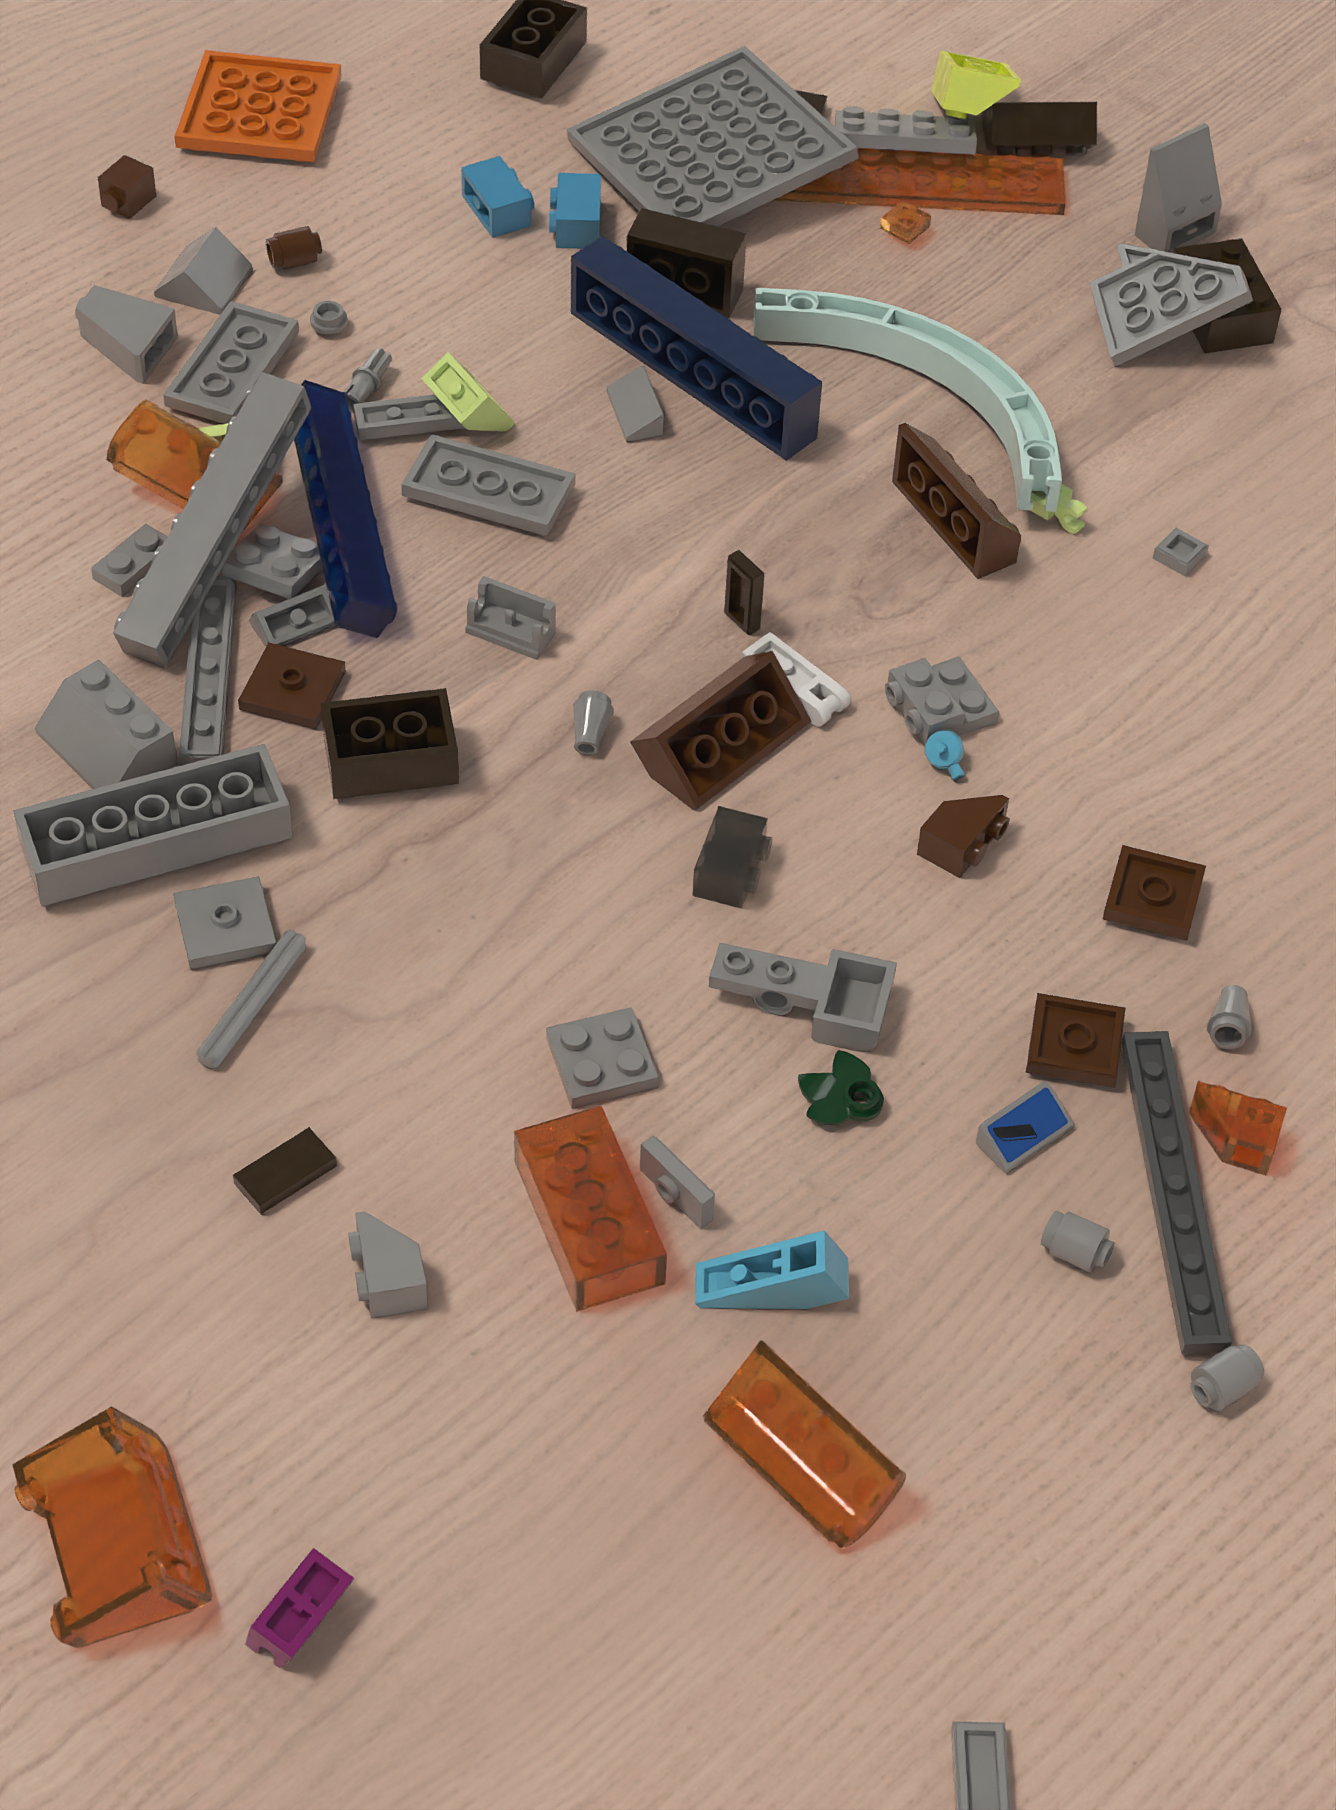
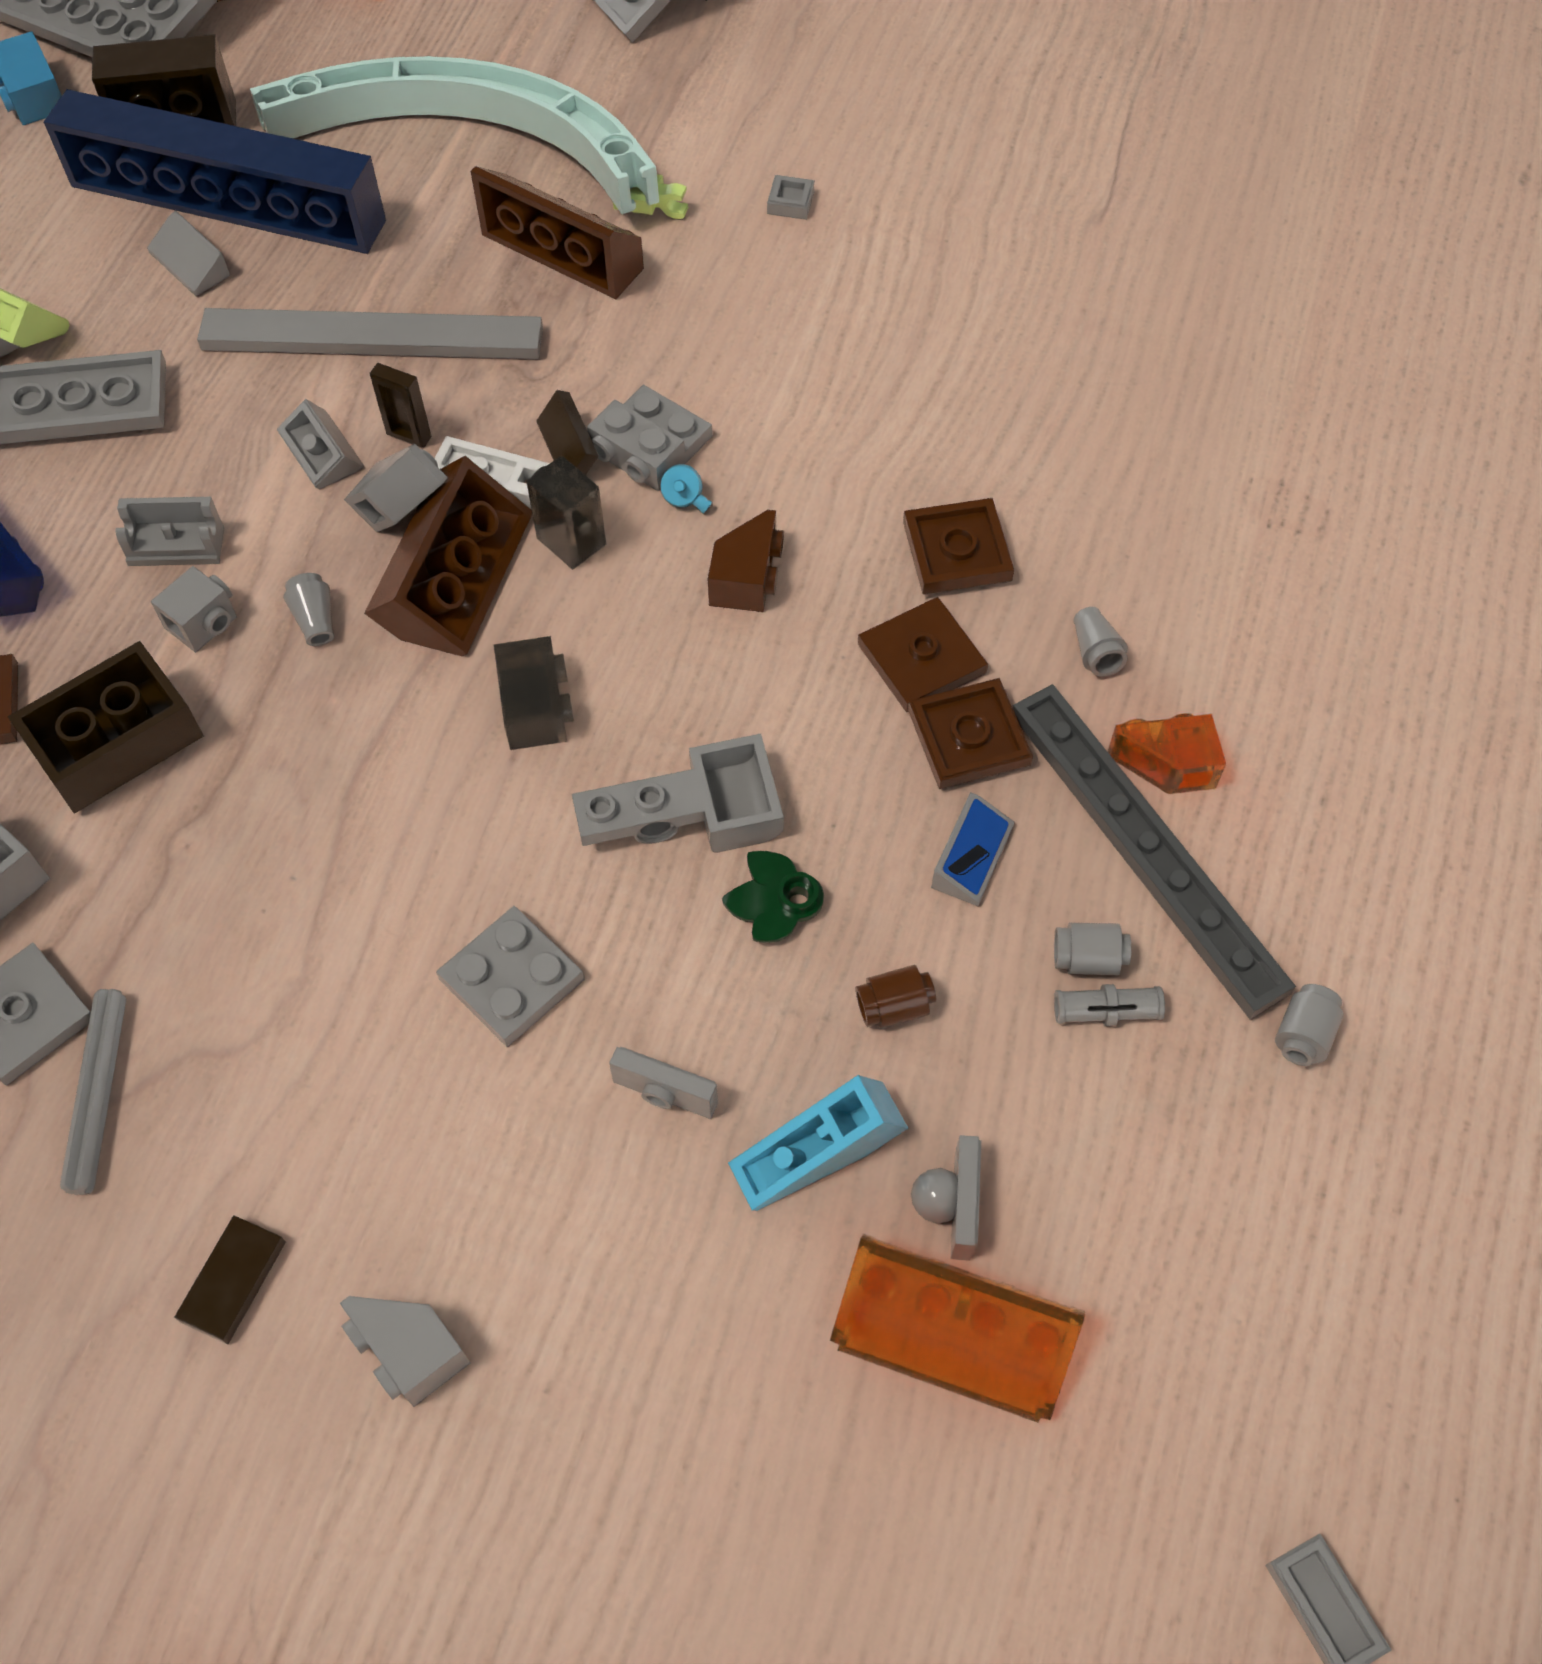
camera: 25 degrees left, 10 degrees up
(500, 684) = (195, 608): none -> light grey brick
(589, 1208) = (589, 1160): clear orange brick -> none
(664, 599) = (319, 445): none -> light grey slope
(705, 654) = (395, 487): none -> light grey slope
(756, 527) = (371, 333): none -> light grey tile
(833, 729) = (566, 511): none -> clear smoke brick
(857, 1362) = (954, 1196): none -> light grey tile
(869, 673) = (566, 432): none -> dark brown tile
(895, 1204) = (895, 997): none -> reddish brown brick
(1075, 962) = (922, 652): none -> reddish brown plate
(1099, 1301) = (1109, 1004): none -> light grey pin

